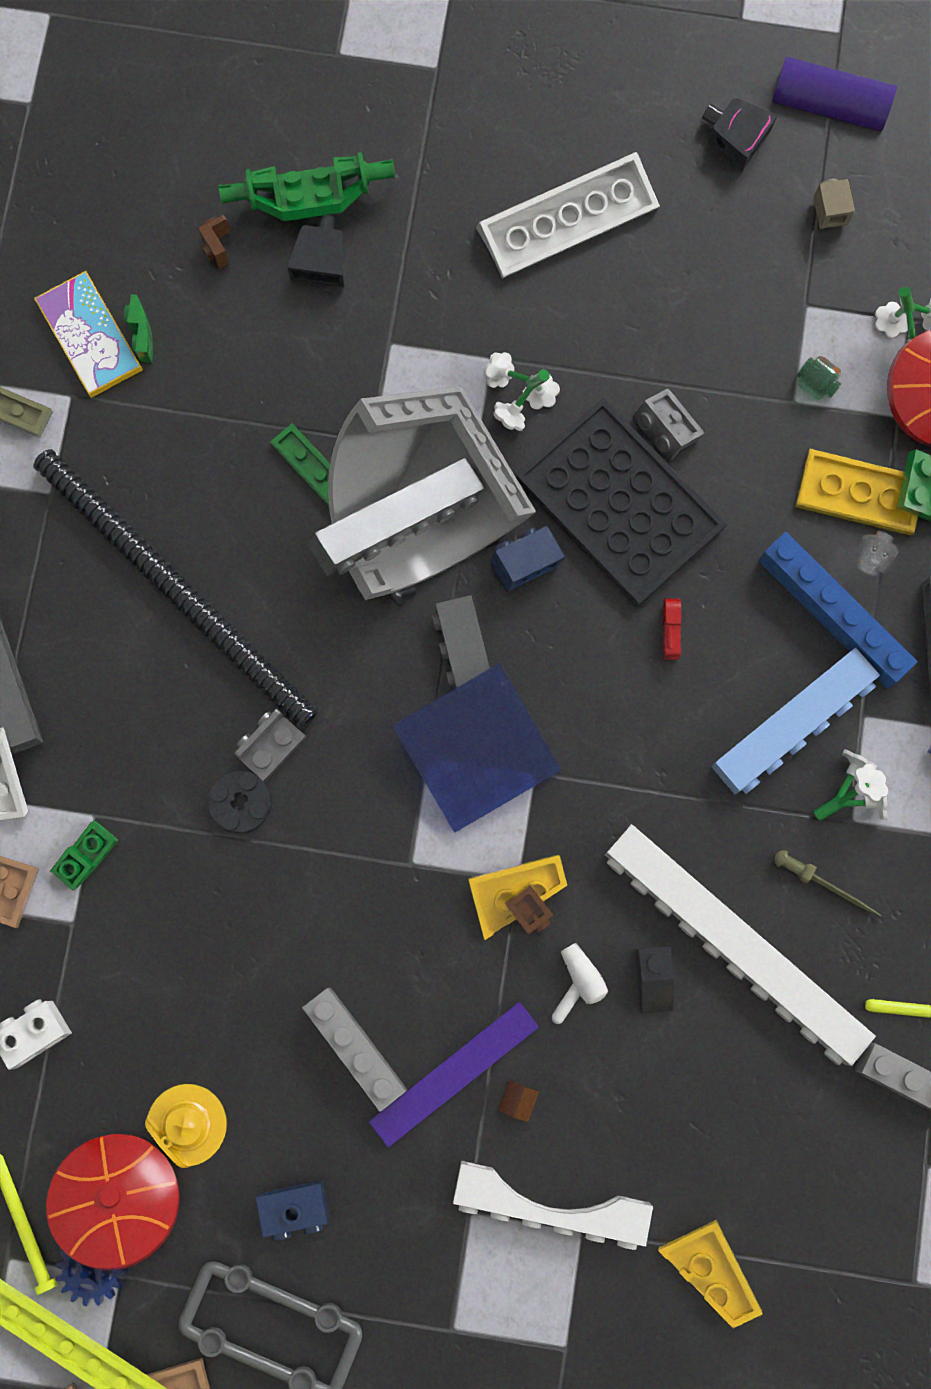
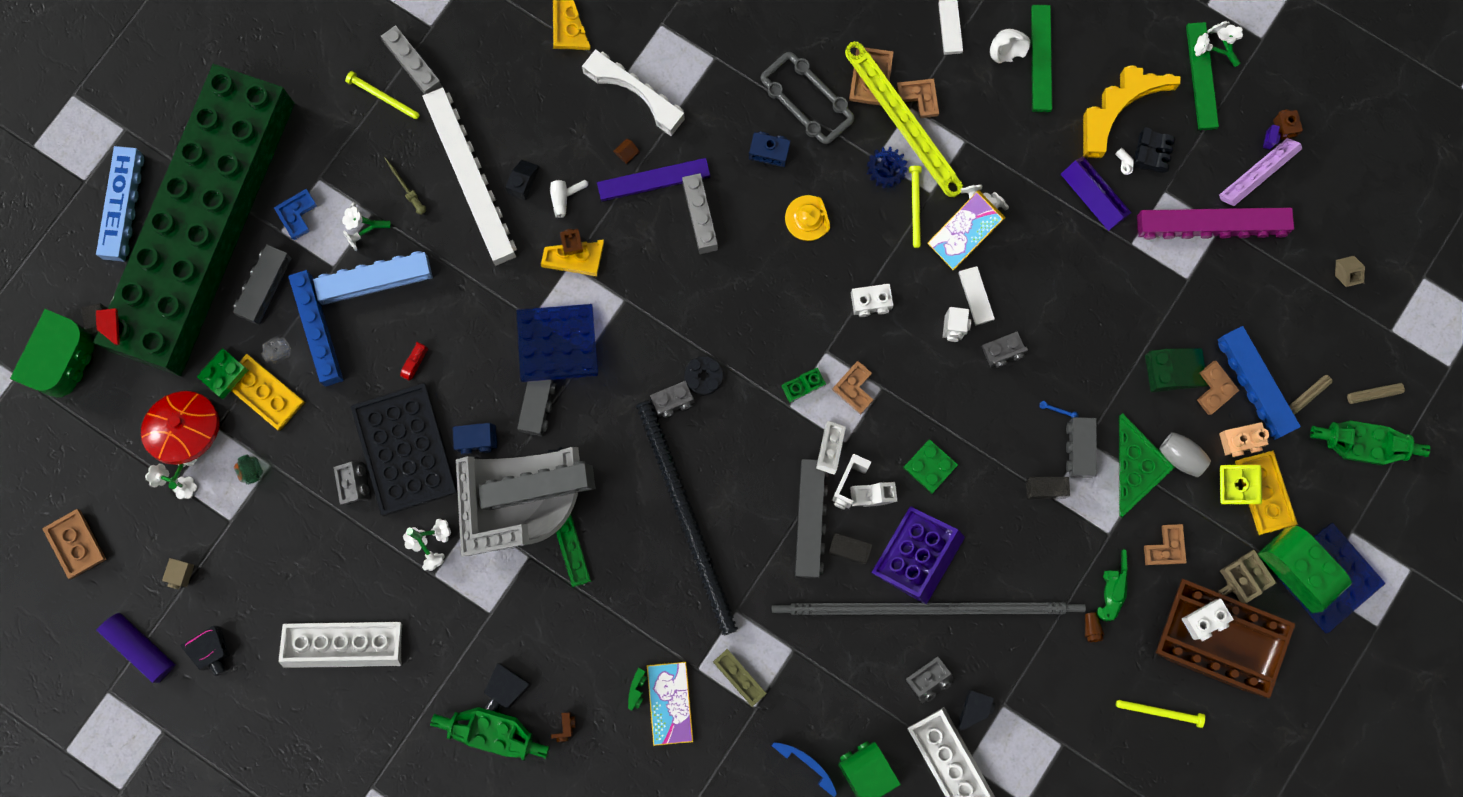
camera: 155 degrees left, 0 degrees up
(113, 1202) = (861, 193): red dish -> none

